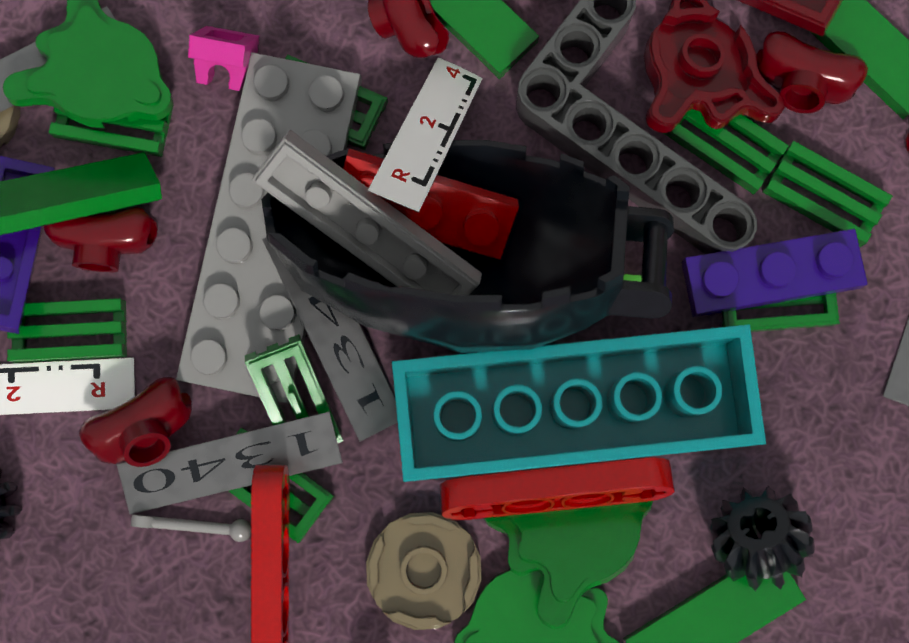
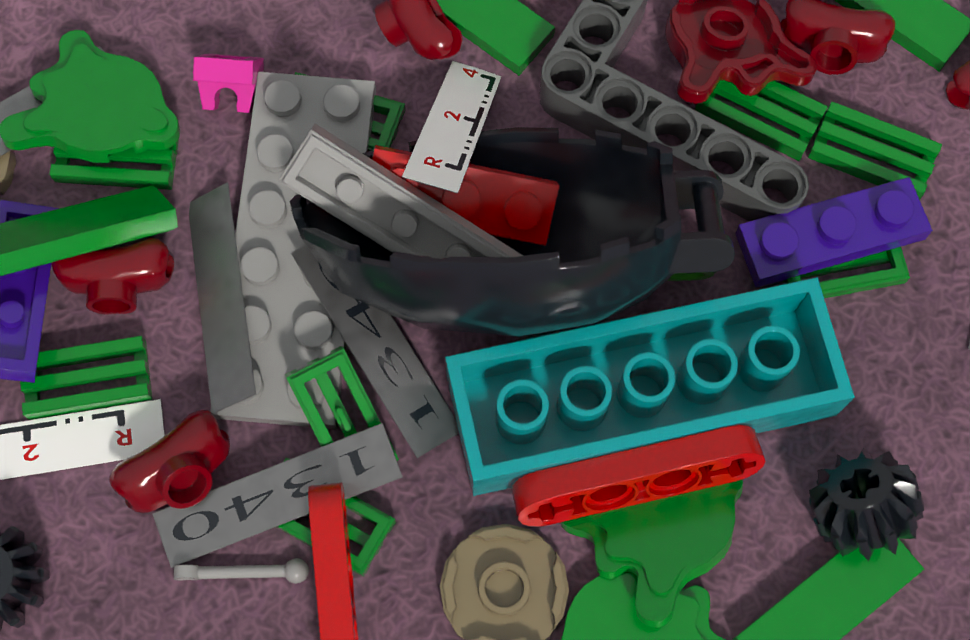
camera: 10 degrees left, 10 degrees down
(195, 272) = (221, 299): none -> flat silver sticker

